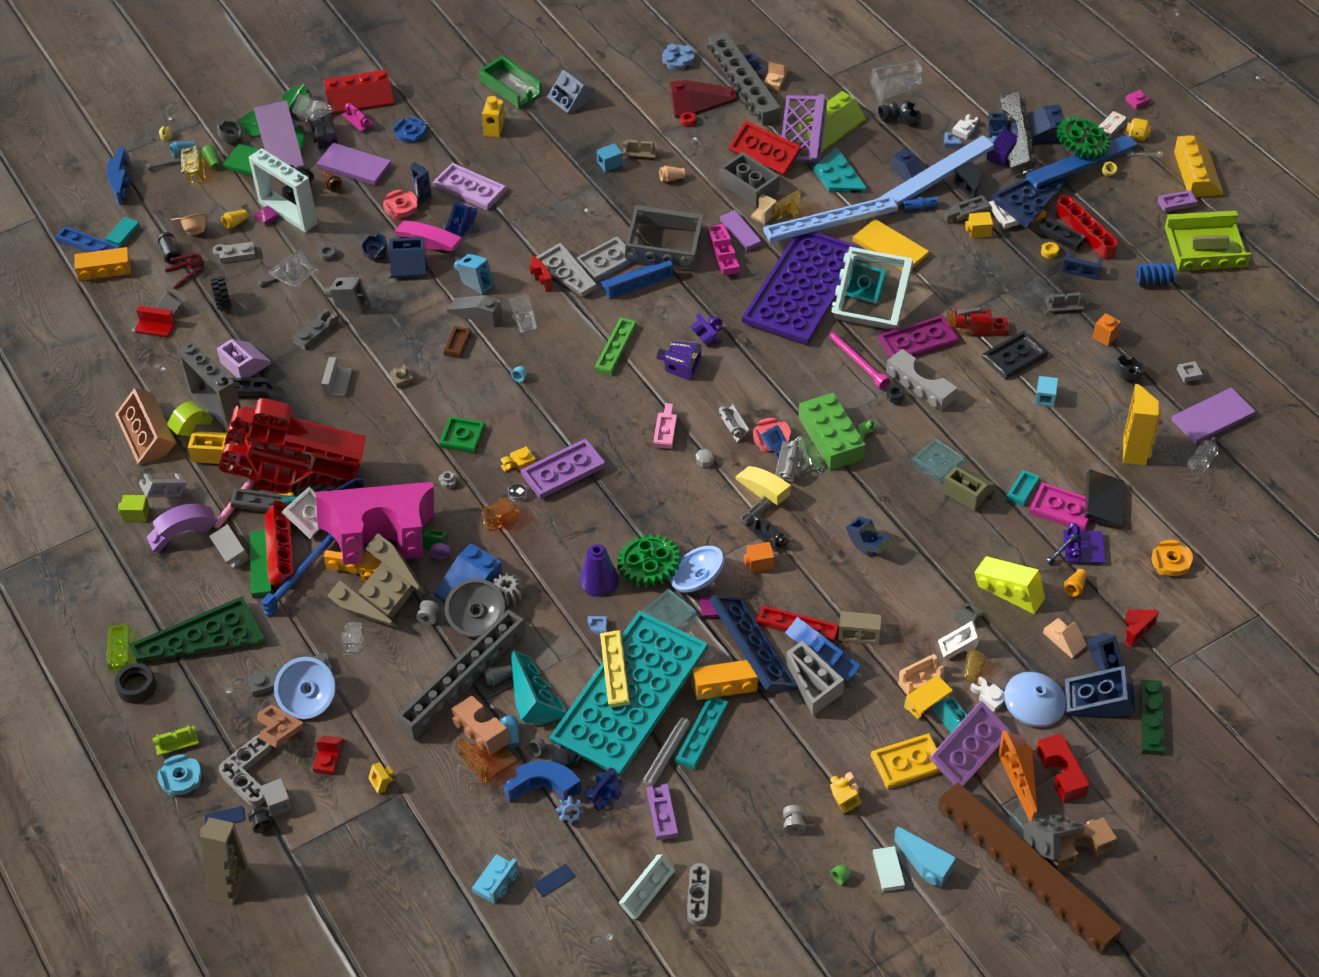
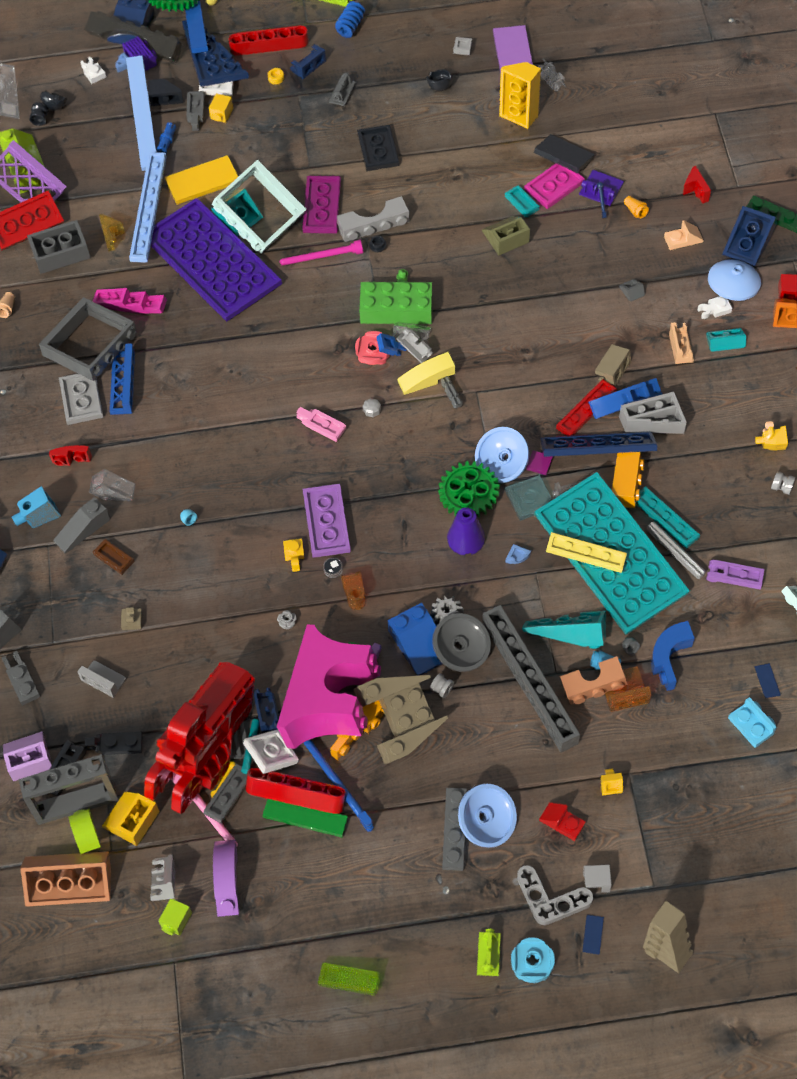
camera: 65 degrees left, 10 degrees up
(129, 672) = (403, 957): black tyre -> none
(214, 630) = (371, 882): dark green wing -> none
(229, 547) = (273, 837): light grey hinge -> none
(260, 819) = (615, 899): black wheel -> none
(280, 725) = (518, 849): nougat plate -> none
(353, 639) = (441, 758): clear brick -> none
(462, 435) = (236, 590): green tile -> none
(494, 675) = (539, 651): dark grey cone -> none
(564, 756) = (654, 626): black hair -> none
(565, 806) = (709, 641): medium blue gear -> none
(567, 270) = (78, 432): light grey wing -> none
(606, 789) = (701, 616): clear blue hips -> none
(615, 346) = (197, 428): bright green tile -> none
(681, 358) = (248, 381): dark purple torso -> none
(710, 328) = (223, 345): dark purple hips -> none
(734, 422) = (345, 369): light grey hinge -> none
(740, 230) = (112, 280): medium lavender tile -> none
(759, 557) = (506, 406): orange brick -> none
(765, 210) = (100, 251): tan panel -> none
(768, 533) = (482, 392): black hinge -> none
(838, 174) = (89, 182): teal wing -> none
(865, 537) = (527, 324): dark blue brick -> none
(906, 164) = (118, 128): dark blue slope -> none
(906, 761) = (755, 386): yellow tile -> none
(927, 696) = (704, 346): yellow hinge -> none
(937, 460) = (462, 245): clear light blue tile -> none
(951, 141) = (102, 87): medium blue tile -> none
(962, 639) = (662, 302): white slope -> none
(969, 744) = (763, 337): medium lavender plate -> none
(974, 663) = (685, 305): clear yellow cone -> none
(979, 321) = (331, 155): red plate -> none
(996, 123) = (104, 48): dark blue slope -> none
(1011, 582) = (619, 246): neon yellow wedge -> none
(1046, 391) = (432, 142): medium azure brick -> none
(1060, 233) = (263, 60): black plate -> none
(1105, 651) = (715, 216): dark blue slope -> none
(1106, 329) = (391, 76): orange brick -> none
(1169, 567) = (633, 141): light orange plate -> none

